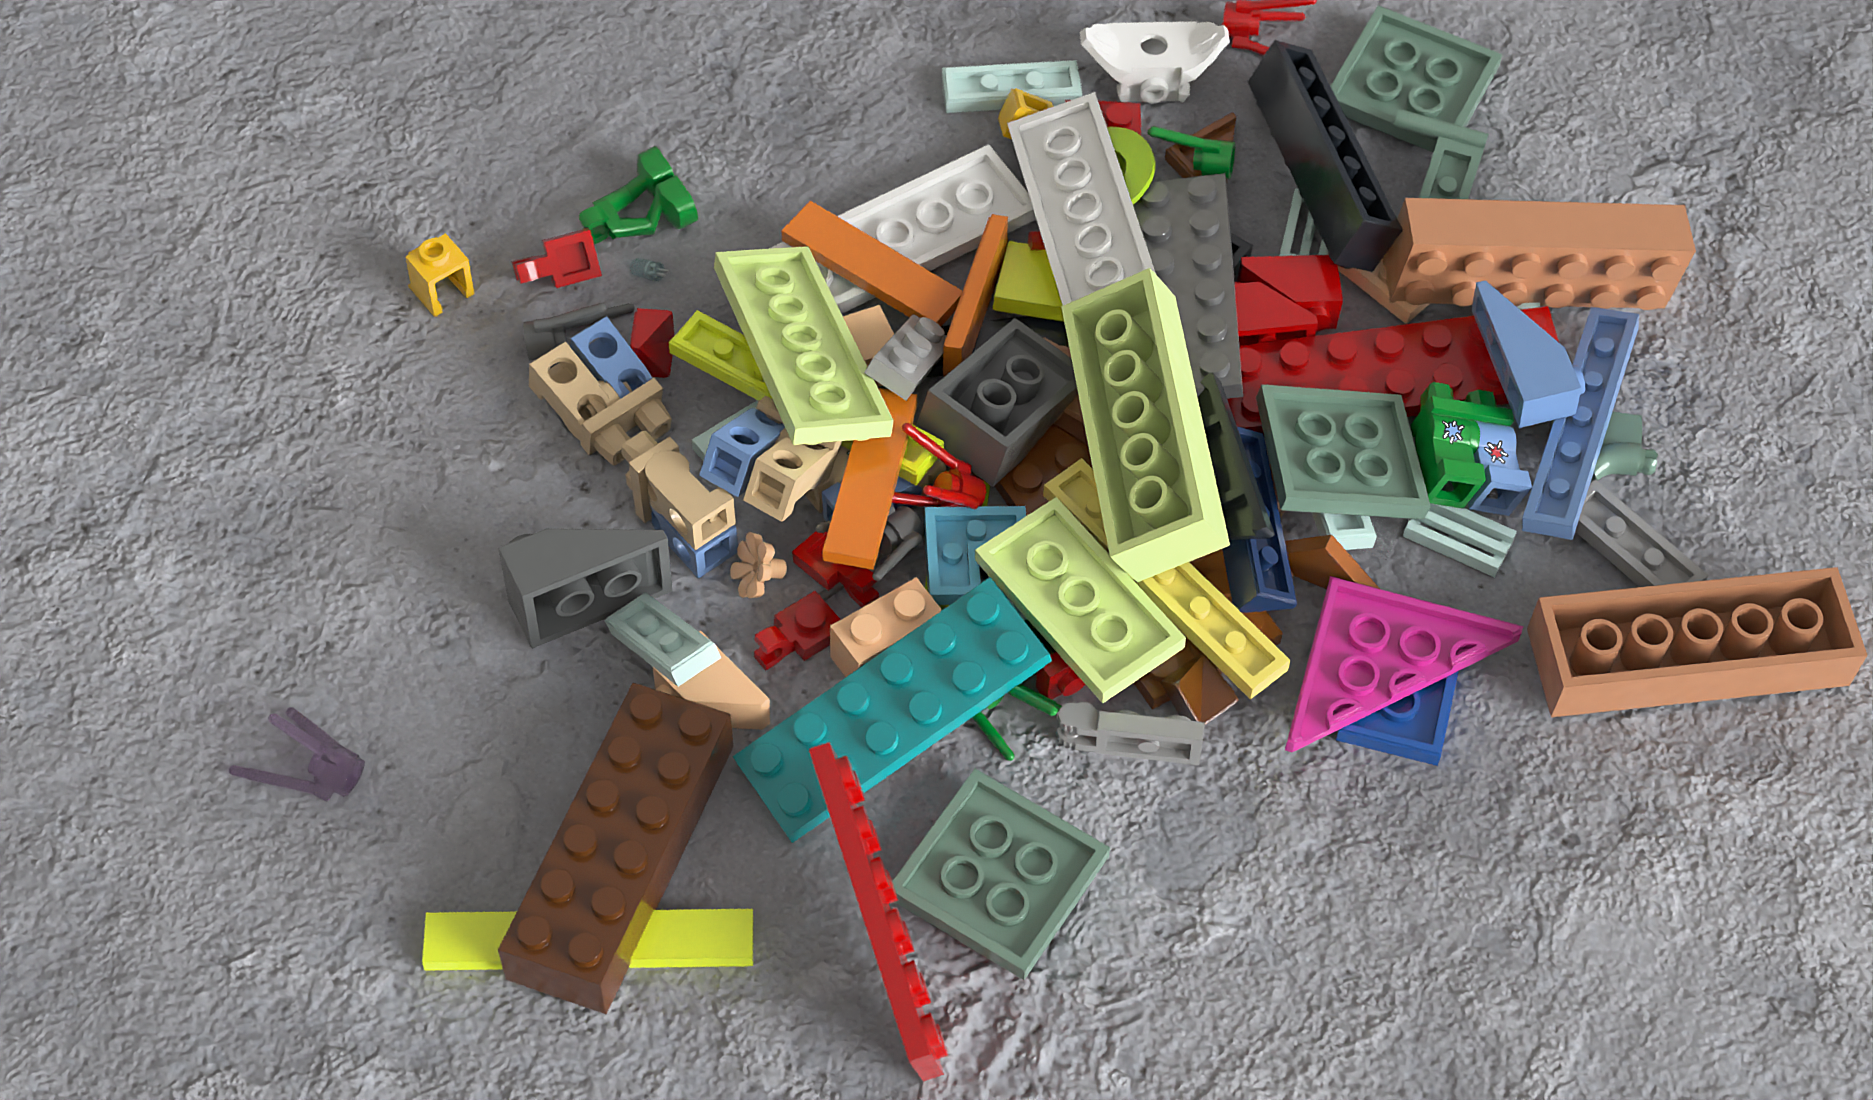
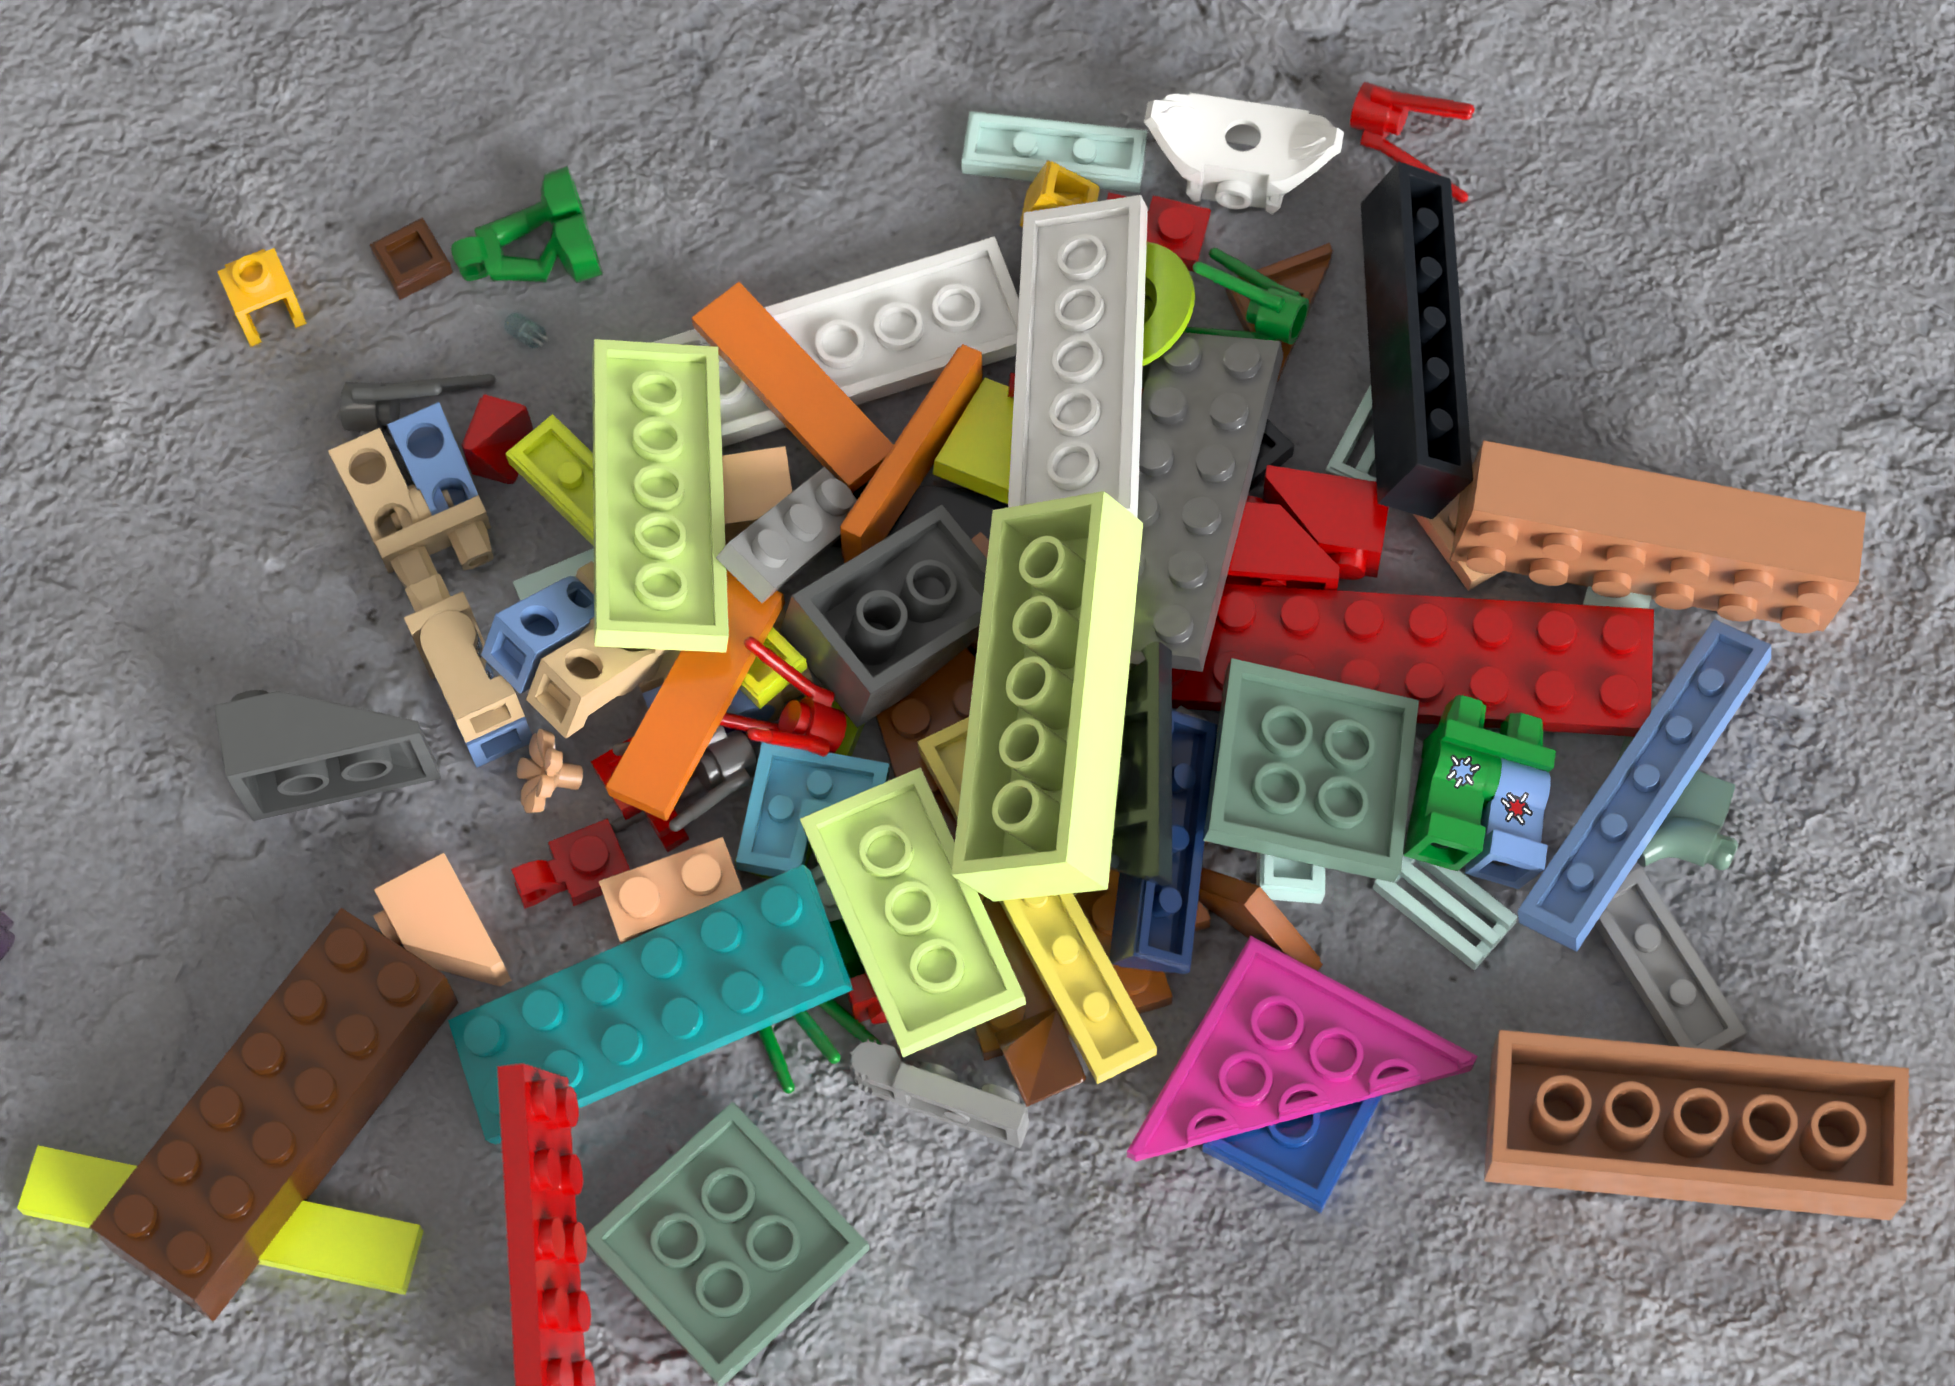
camera: 20 degrees right, 10 degrees up
(539, 226) = (411, 258): none -> reddish brown tile
(567, 259) = (423, 302): red plate -> none
(662, 639) = (395, 854): light aqua tile -> none
(1414, 70) = (1582, 240): sand green plate -> none
(1454, 157) = (1587, 386): sand green plate -> none
(1527, 360) = (1592, 695): medium blue slope -> none

